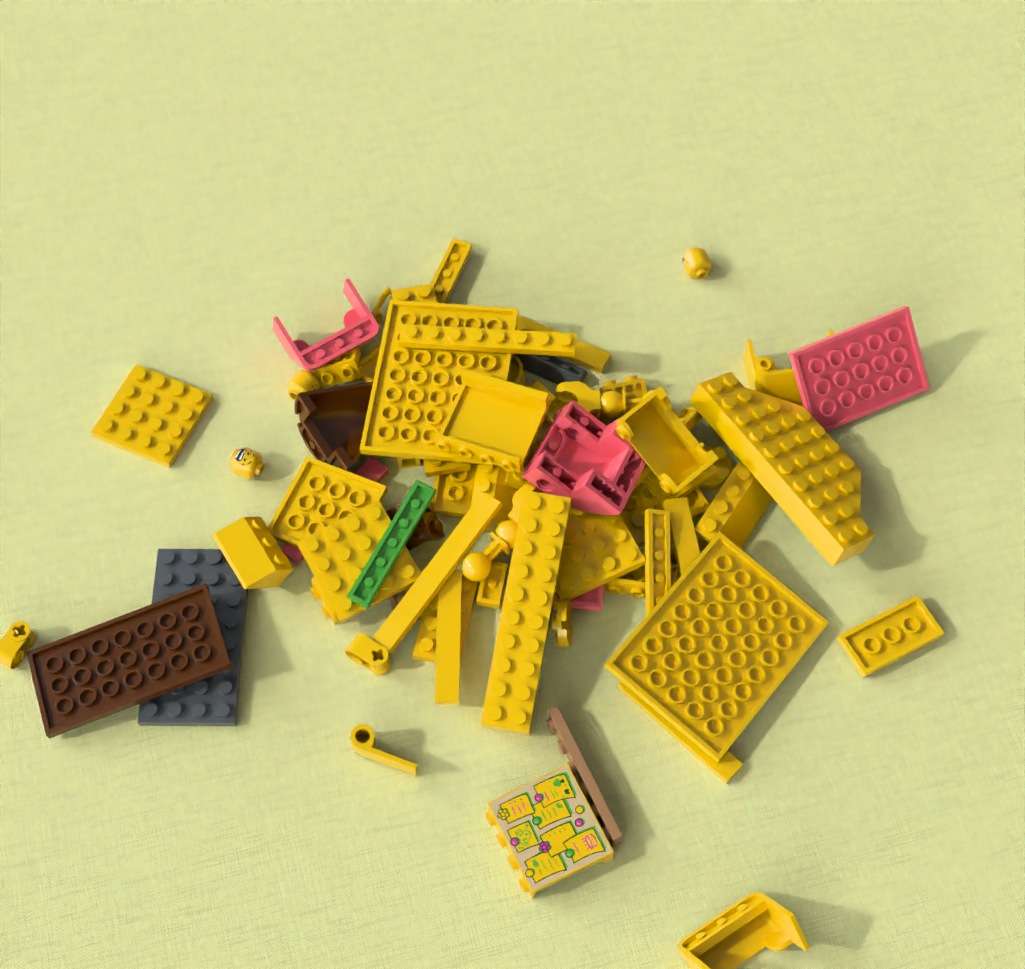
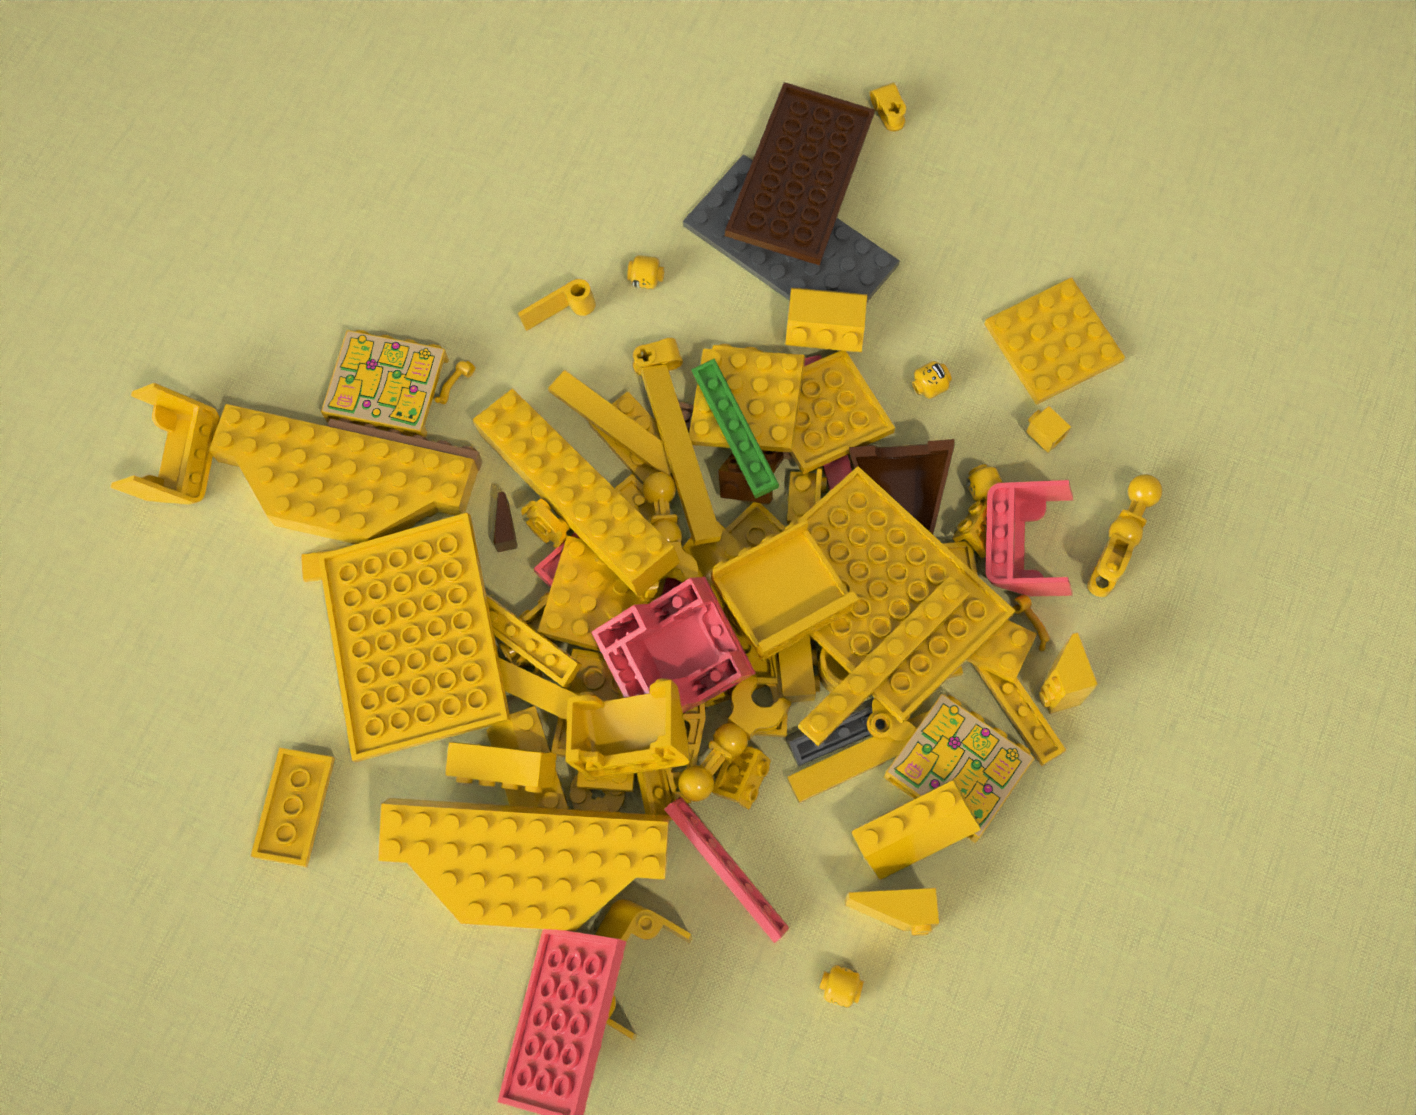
camera: 130 degrees right, 10 degrees up
(232, 371) = (1047, 428): none -> yellow brick
(297, 280) = (1125, 533): none -> yellow piece
(301, 715) = (645, 272): none -> yellow head
(399, 482) = (804, 492): none -> yellow bracket
(409, 252) = (1068, 679): none -> yellow slope
(486, 787) = (462, 368): none -> yellow piece
(514, 278) = (961, 747): none -> panel
(571, 279) = (916, 829): none -> yellow slope
(588, 654) = (504, 532): none -> reddish brown slope
(626, 257) = (904, 909): none -> yellow slope
(657, 802) = (339, 479): none -> yellow brick
(689, 358) = (727, 869): none -> coral tile
(750, 516) = (502, 765): none -> yellow brick

